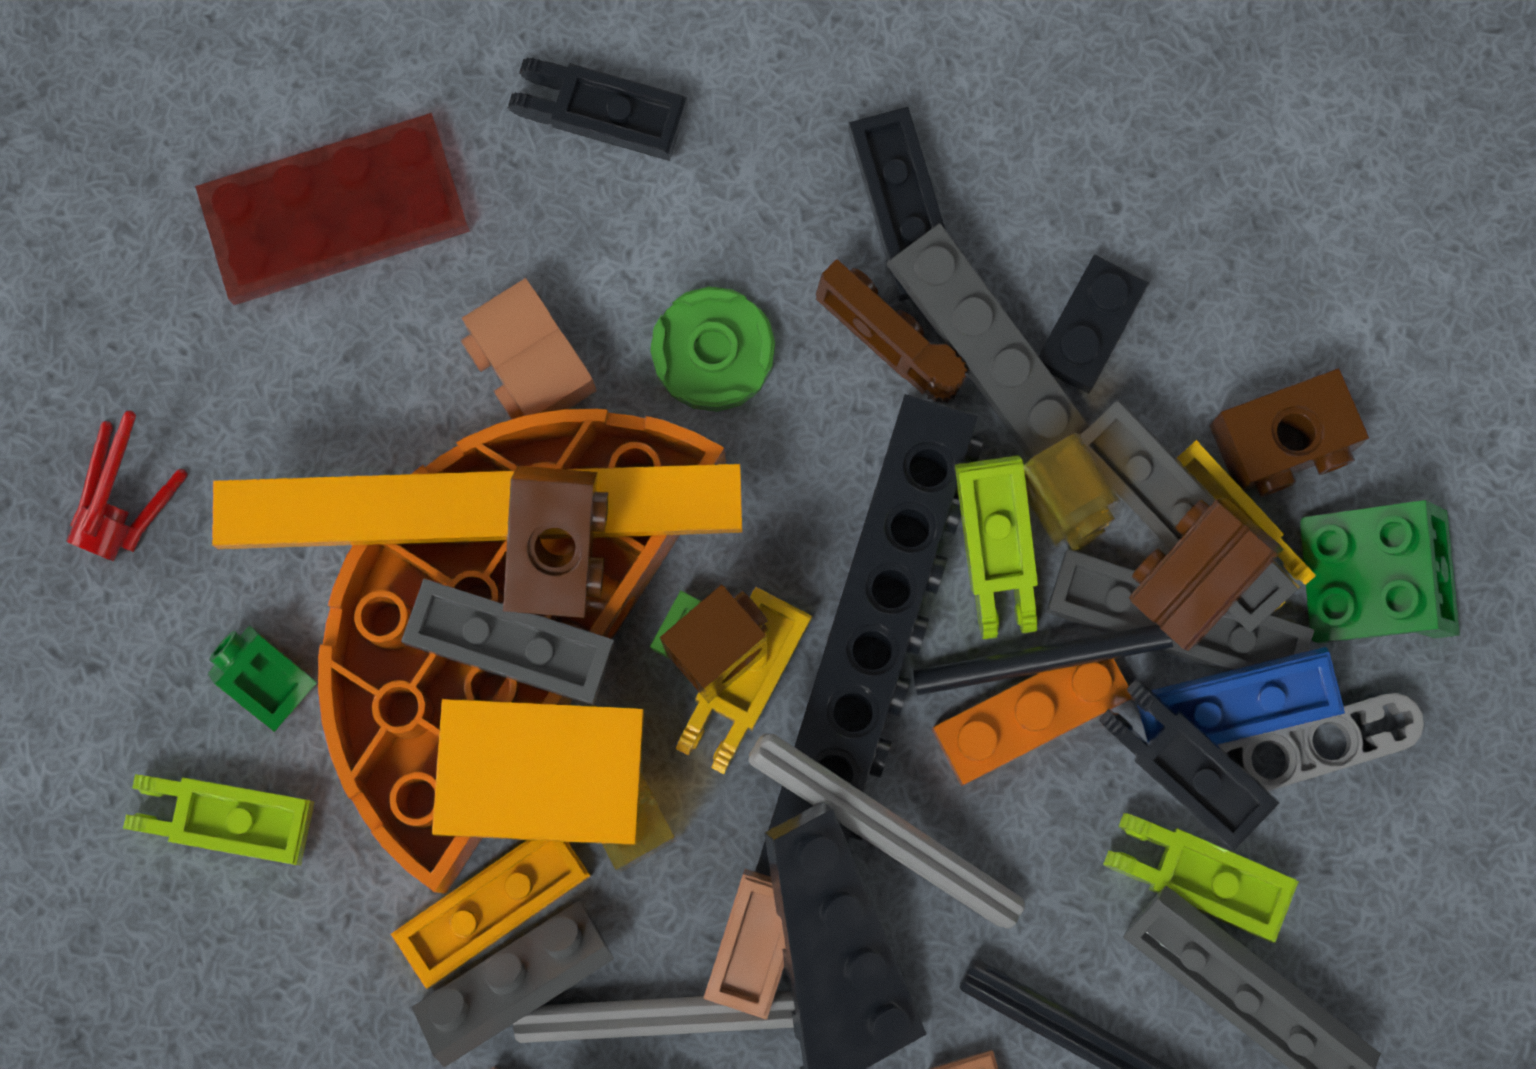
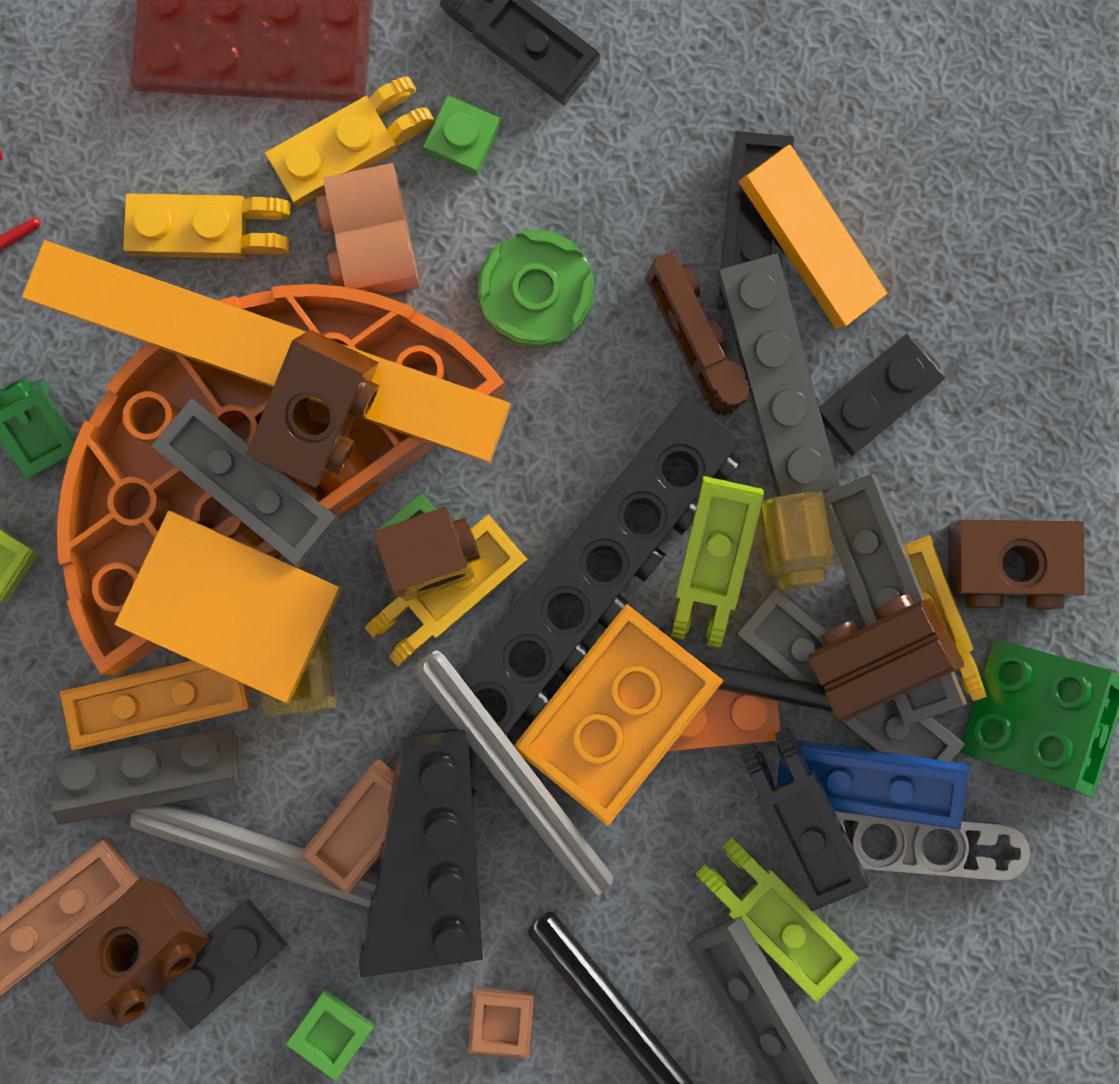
camera: 25 degrees right, 5 degrees up
(353, 413) = (201, 226): none -> yellow hinge
(466, 276) = (347, 141): none -> yellow hinge
(580, 227) = (462, 135): none -> bright green plate
(964, 732) = (617, 714): none -> light orange tile
(966, 196) = (812, 237): none -> light orange tile

